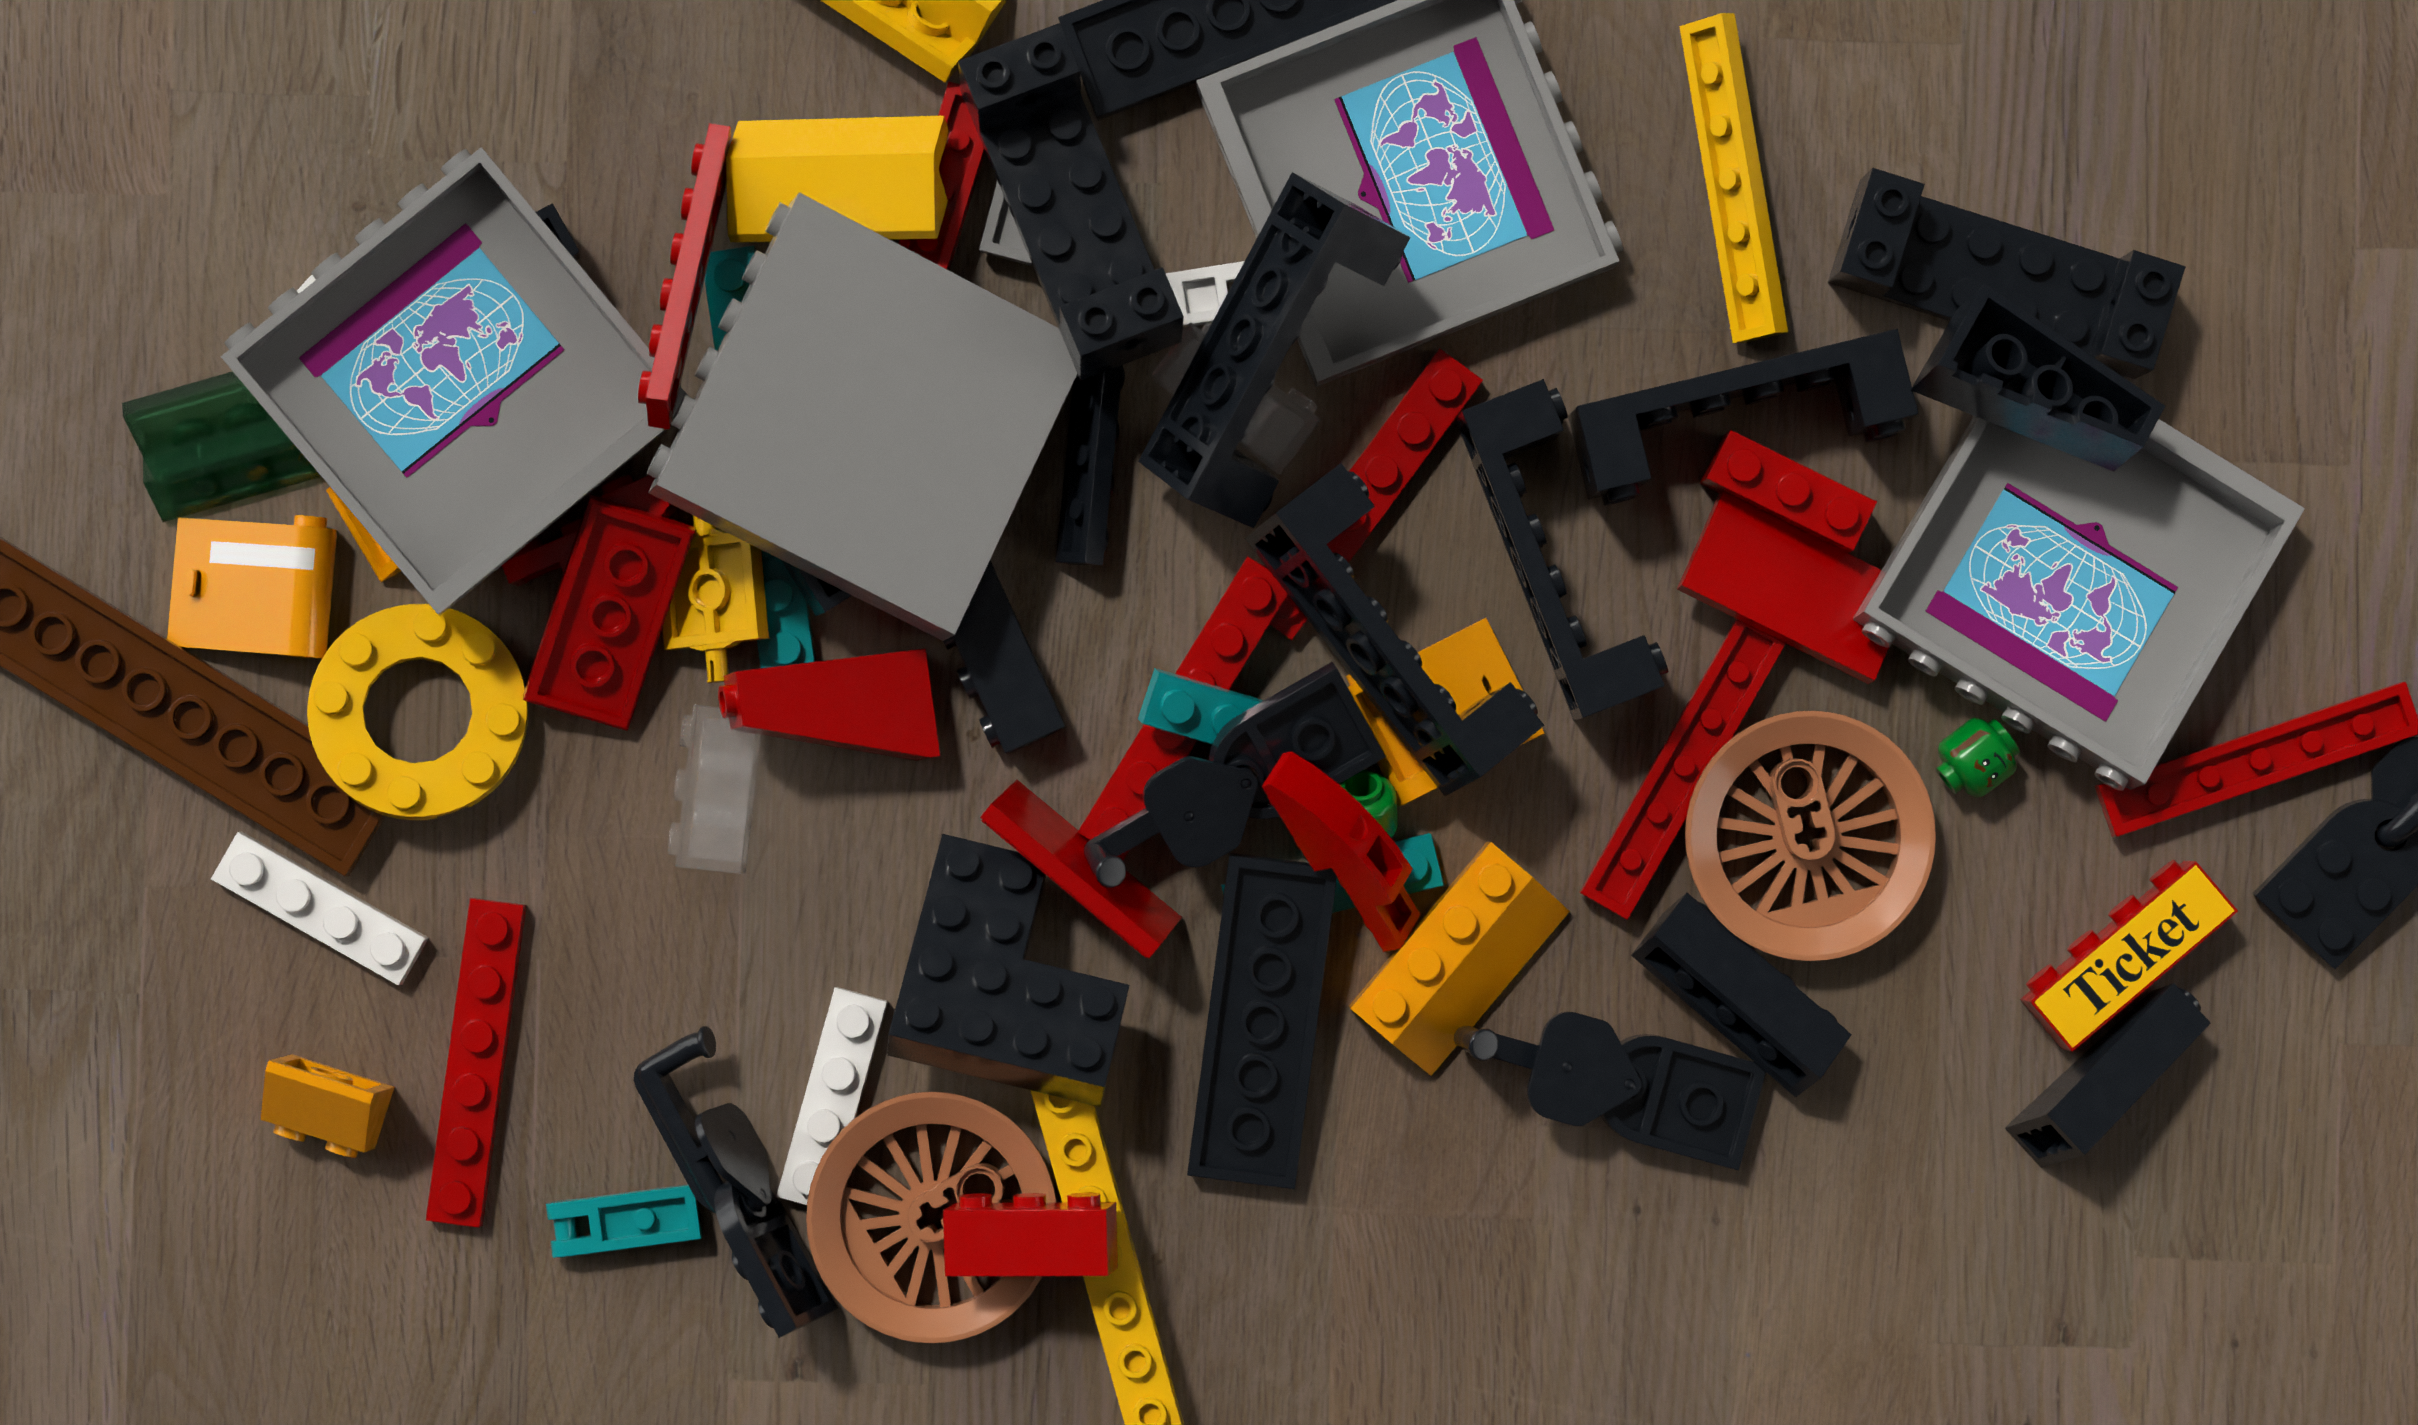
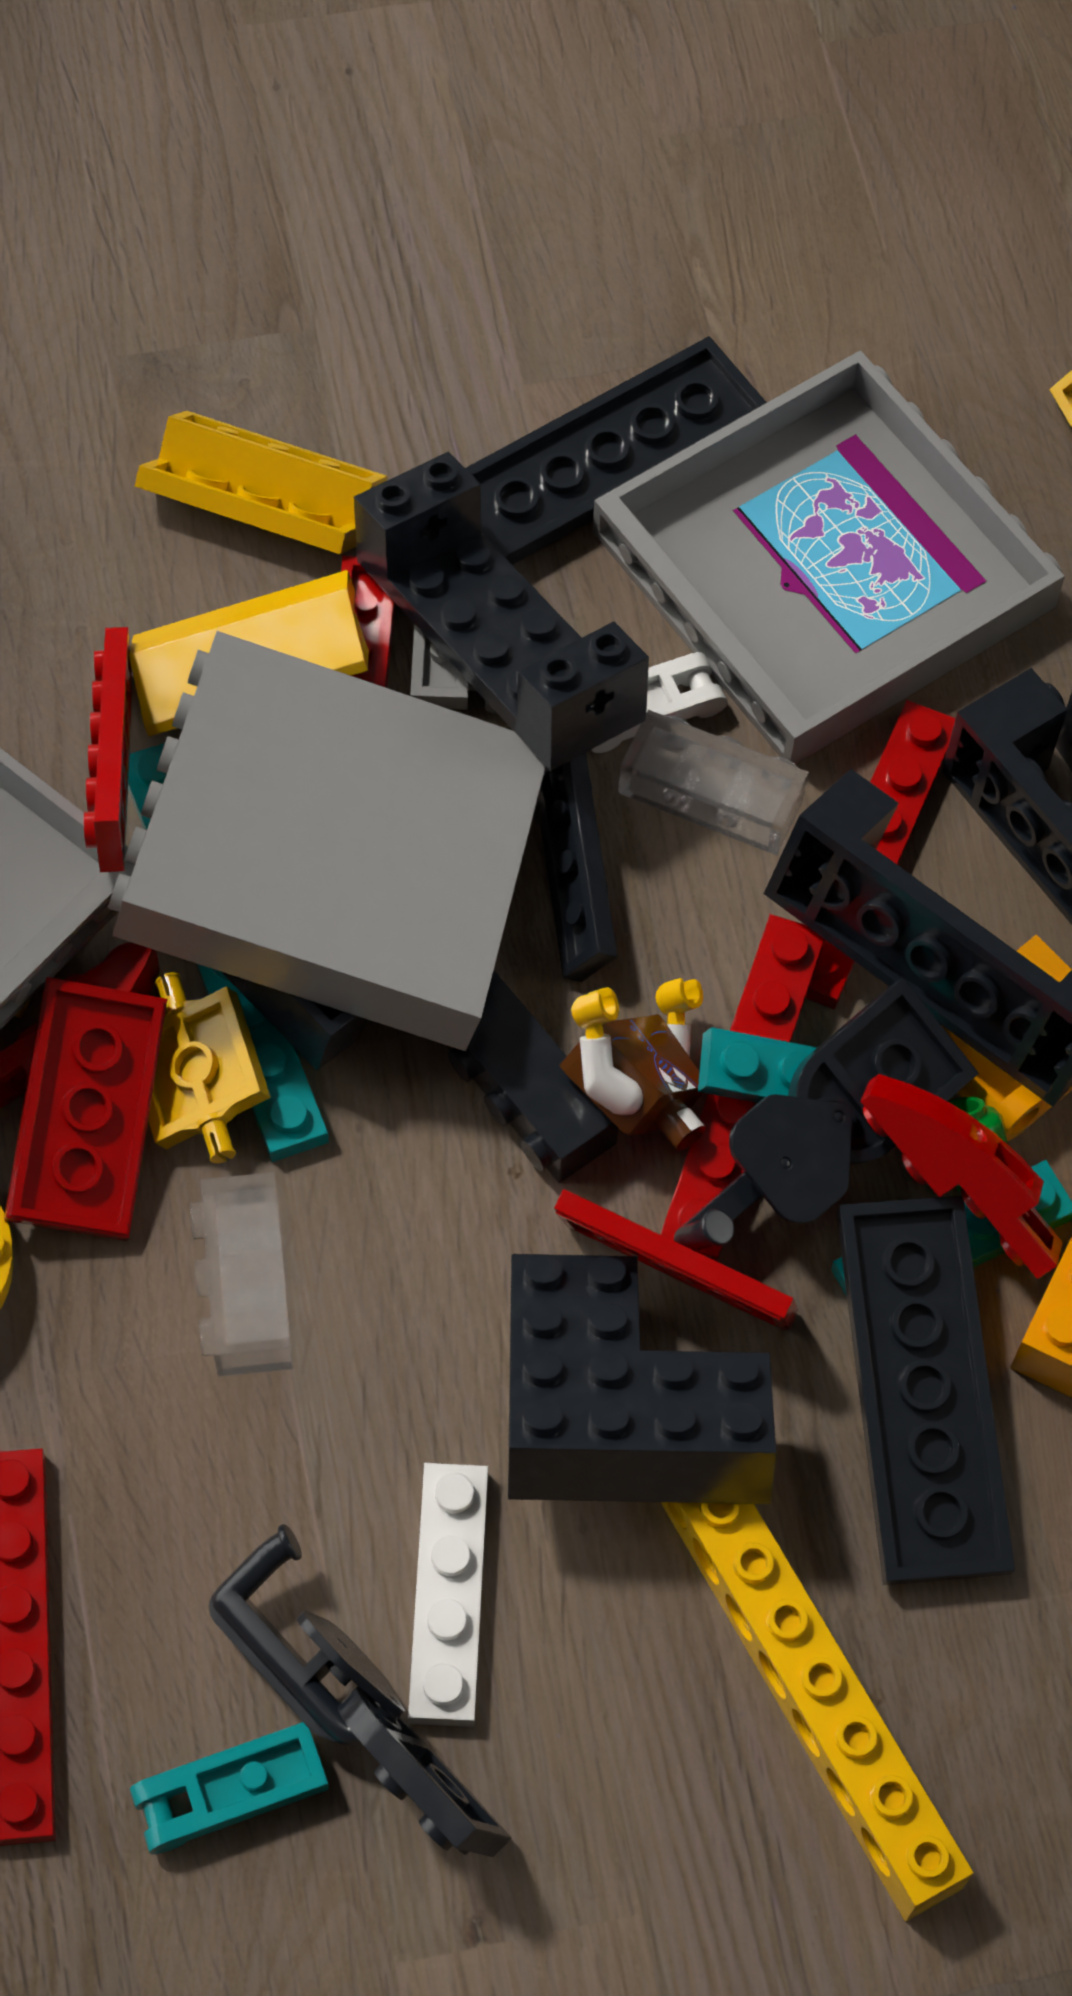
camera: 15 degrees left, 25 degrees down
(846, 703) = (363, 1144): red slope -> none
(853, 1260) = (520, 1770): nougat piece -> none
(1030, 1236) = (730, 1664): red brick -> none
(1097, 684) = (640, 1065): none -> torso
(1249, 339) = (753, 583): black plate -> none

